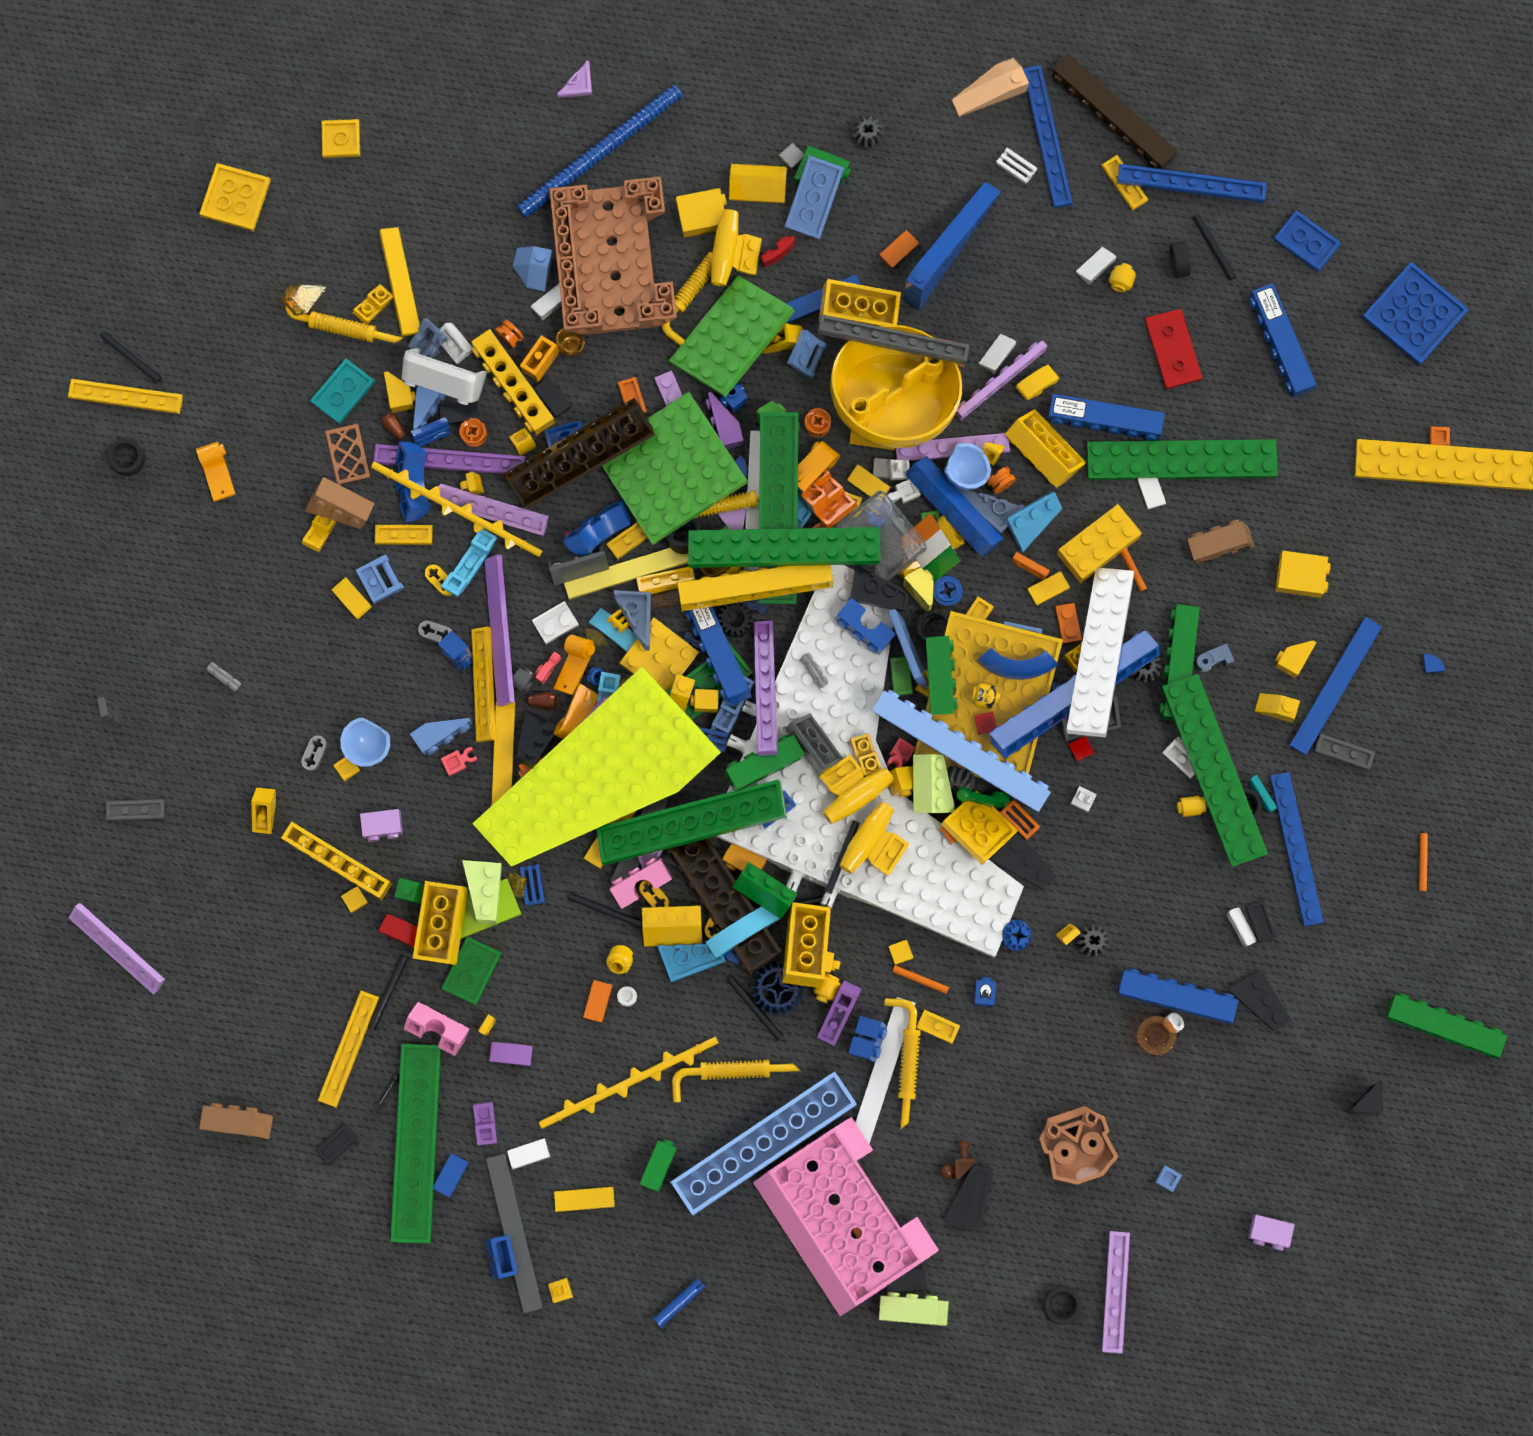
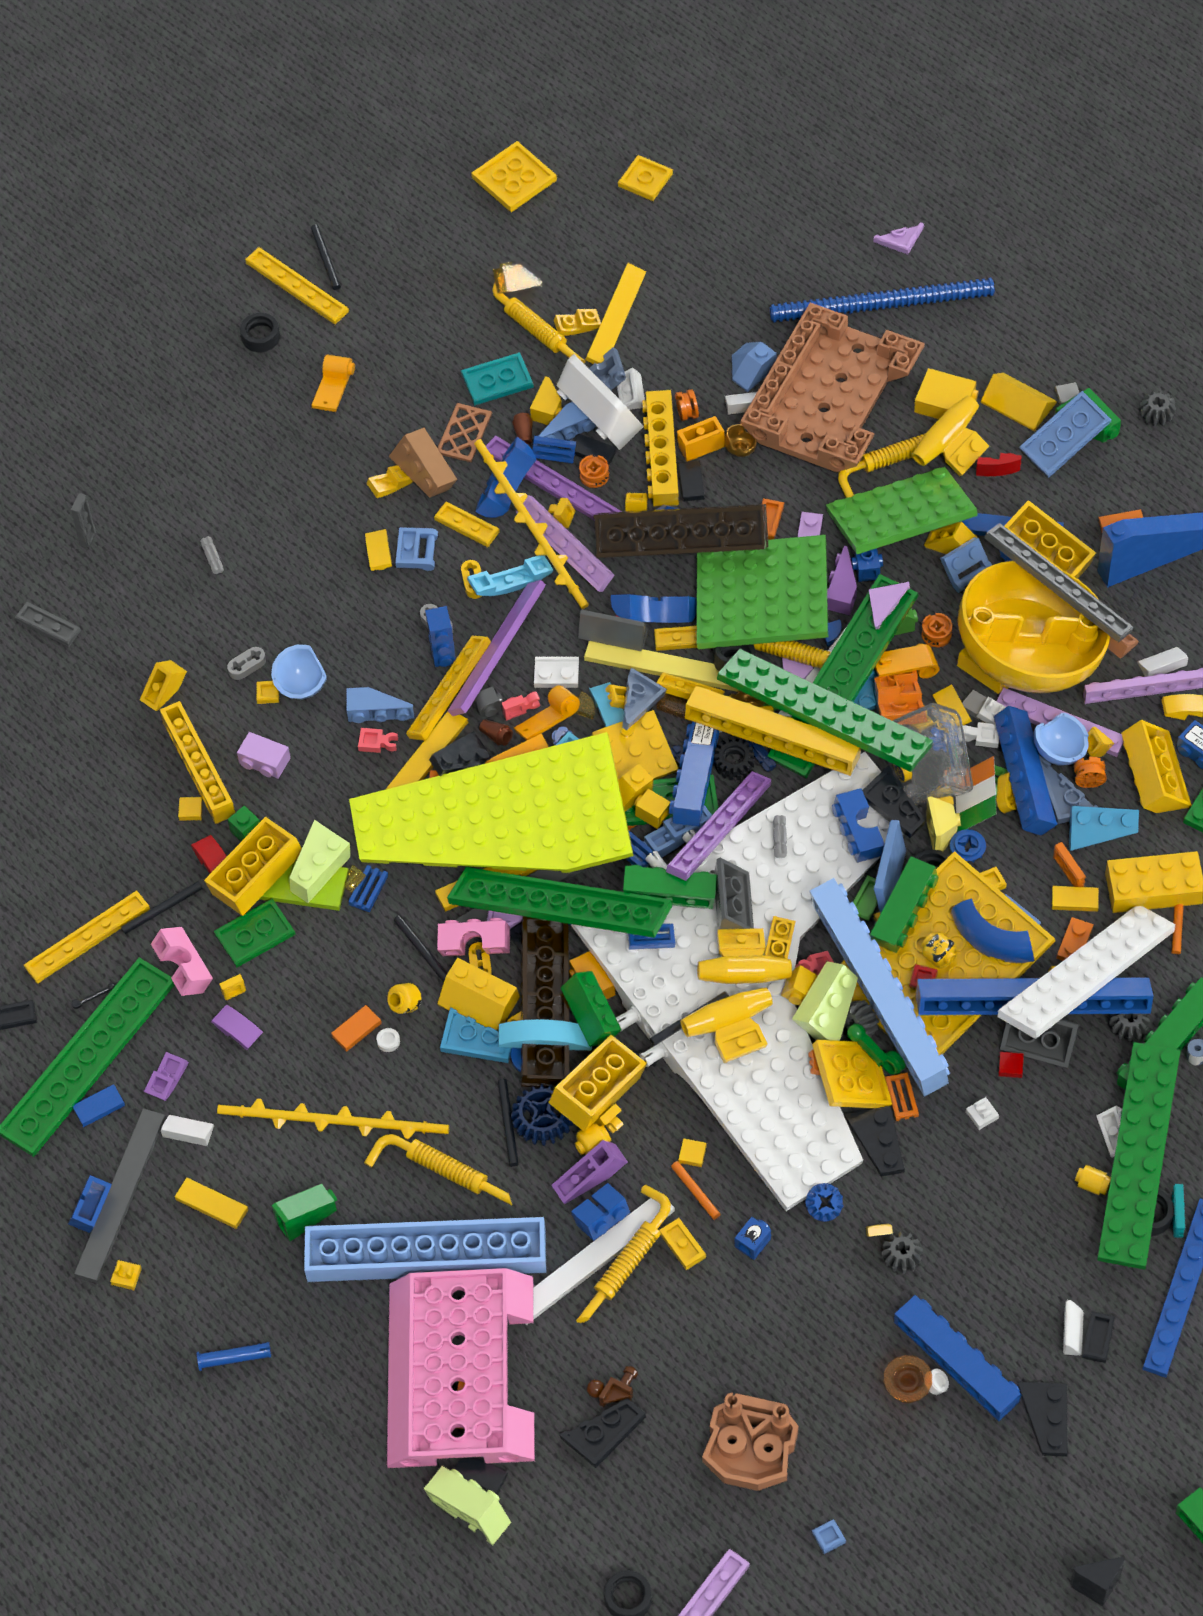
camera: 35 degrees right, 20 degrees down
(778, 433) = (885, 600): none -> lavender tile

